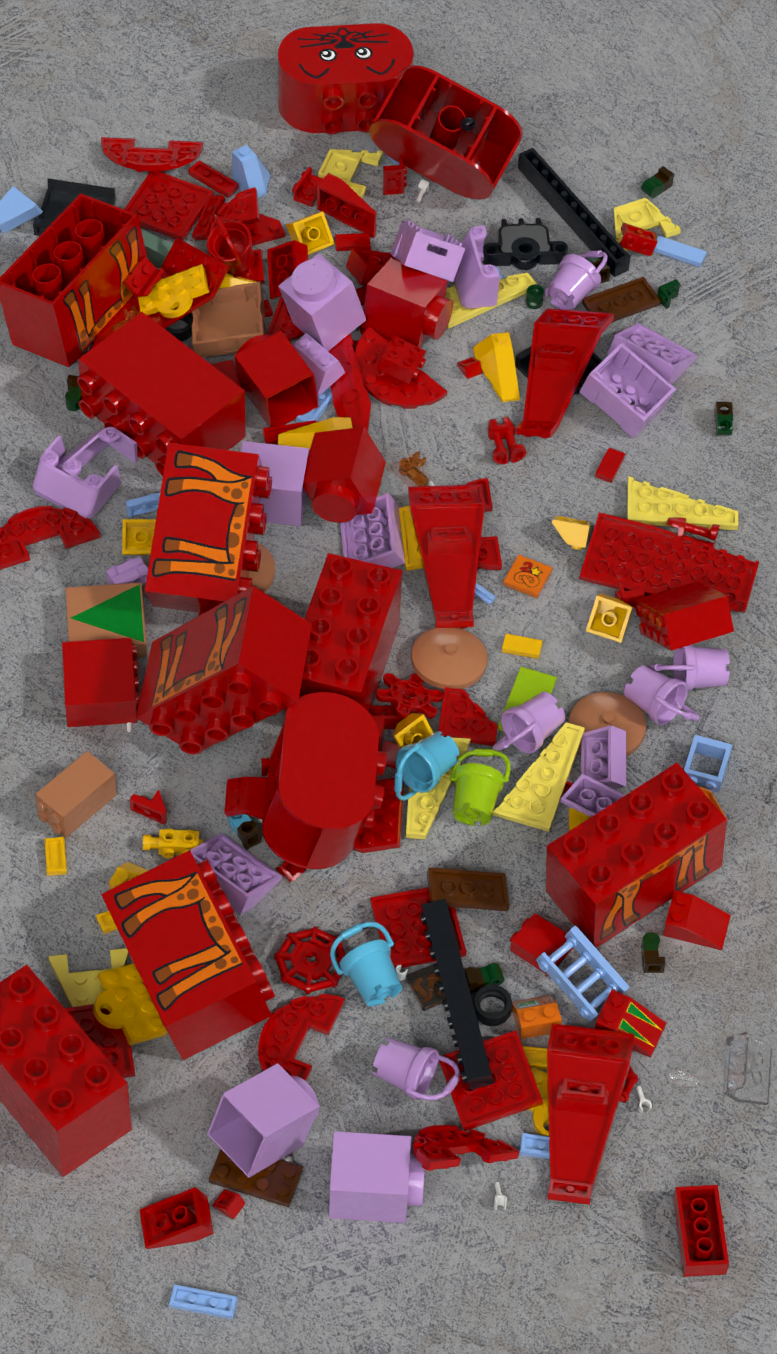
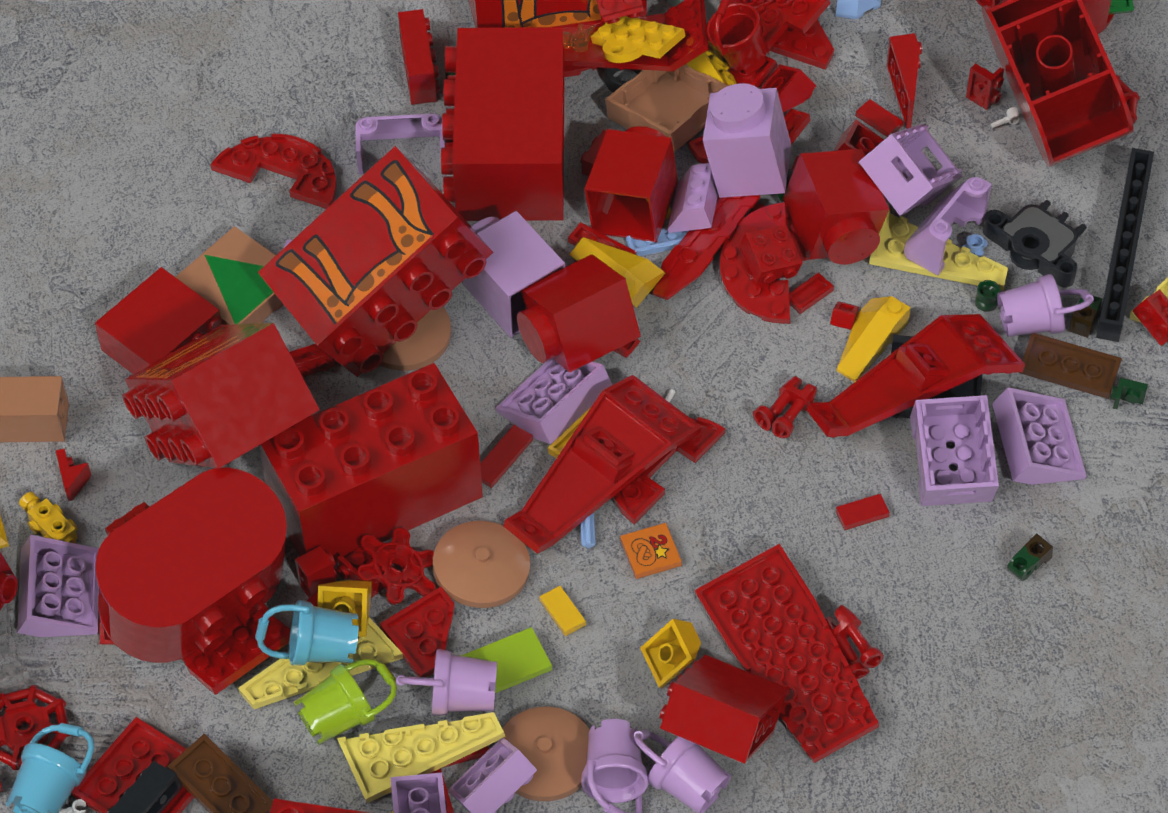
camera: 50 degrees right, 0 degrees up
(42, 405) = (418, 56): none -> red brick
(67, 490) = (349, 159): lavender windscreen -> none
(306, 189) = (901, 28): red bracket -> none
(311, 231) = (845, 81): yellow slope -> none
(345, 164) = (951, 43): light yellow wing -> none
(409, 468) = (667, 361): clear orange bar -> none
(436, 368) = (810, 293): none -> red tile
(467, 121) = (1064, 63): black hinge -> none
(573, 531) = (740, 539): yellow slope -> none
(629, 596) = (712, 647): red bracket -> none
(656, 505) = (857, 583): light yellow wing -> none

